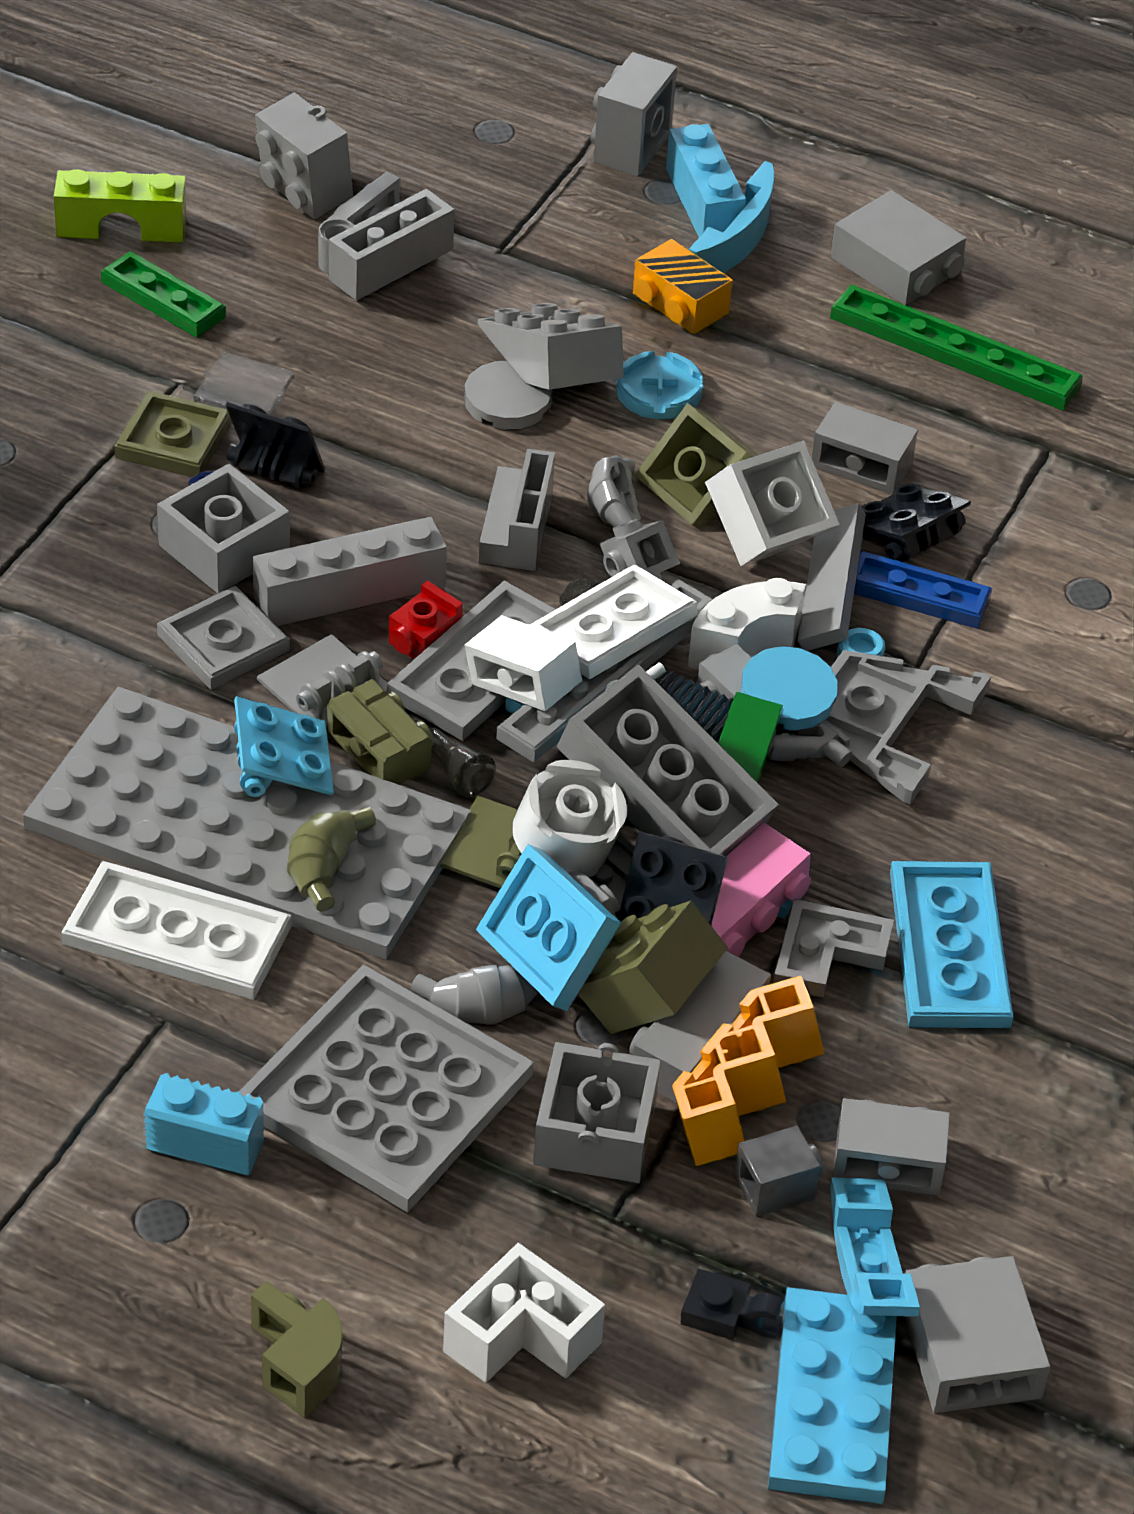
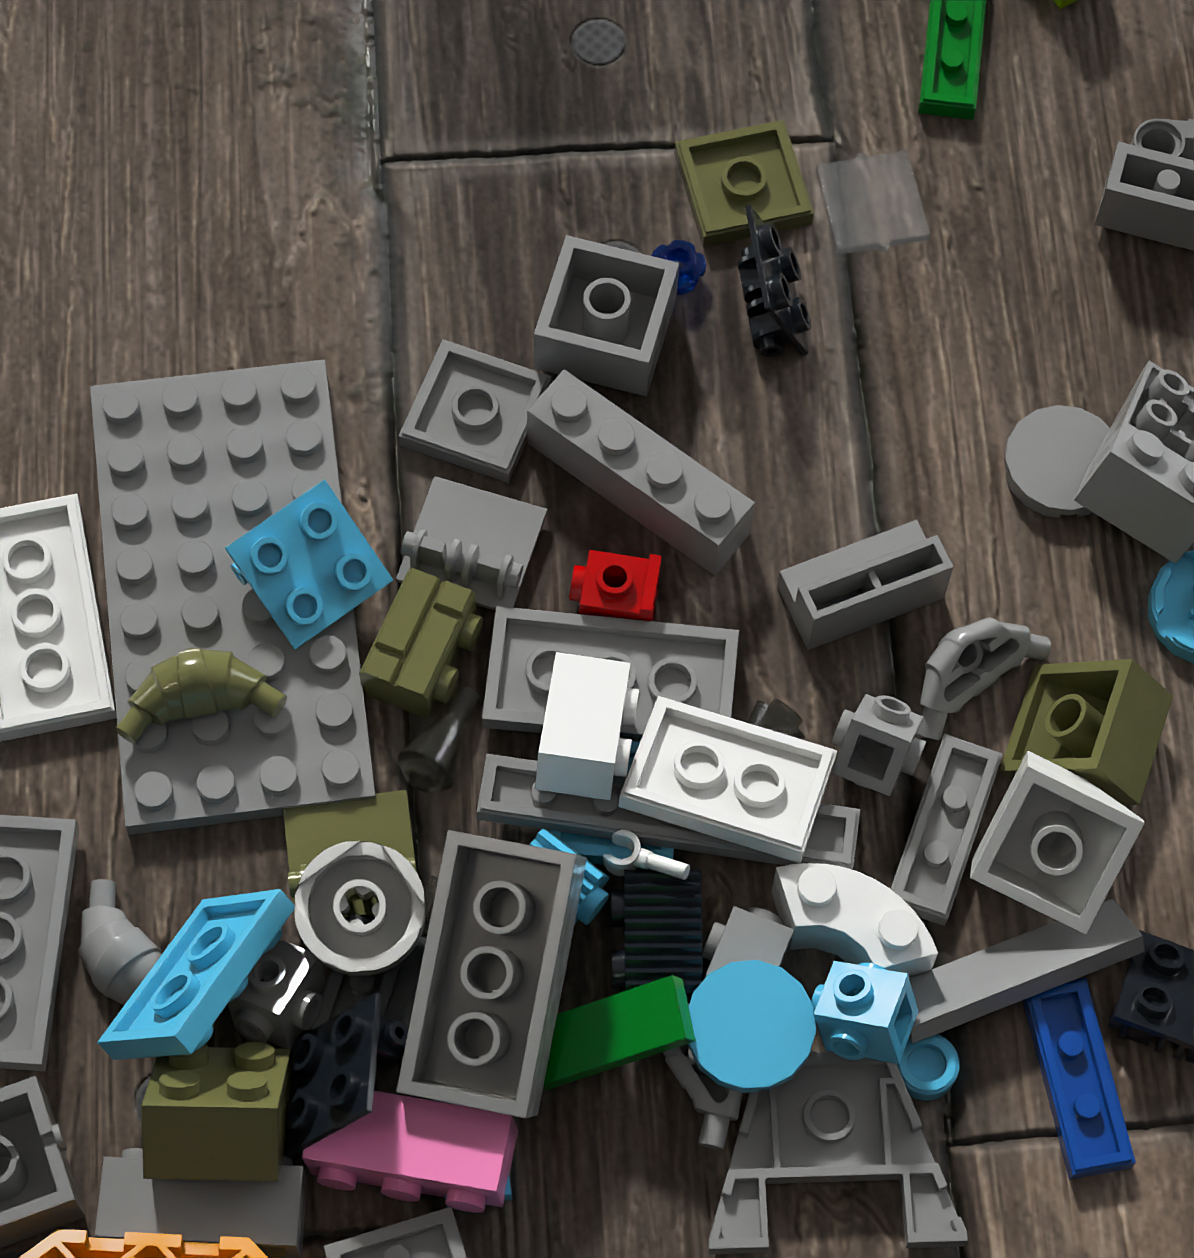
camera: 60 degrees right, 20 degrees up
(706, 559) = (945, 827): none -> light grey tile
(822, 628) = (865, 1012): none -> medium azure brick

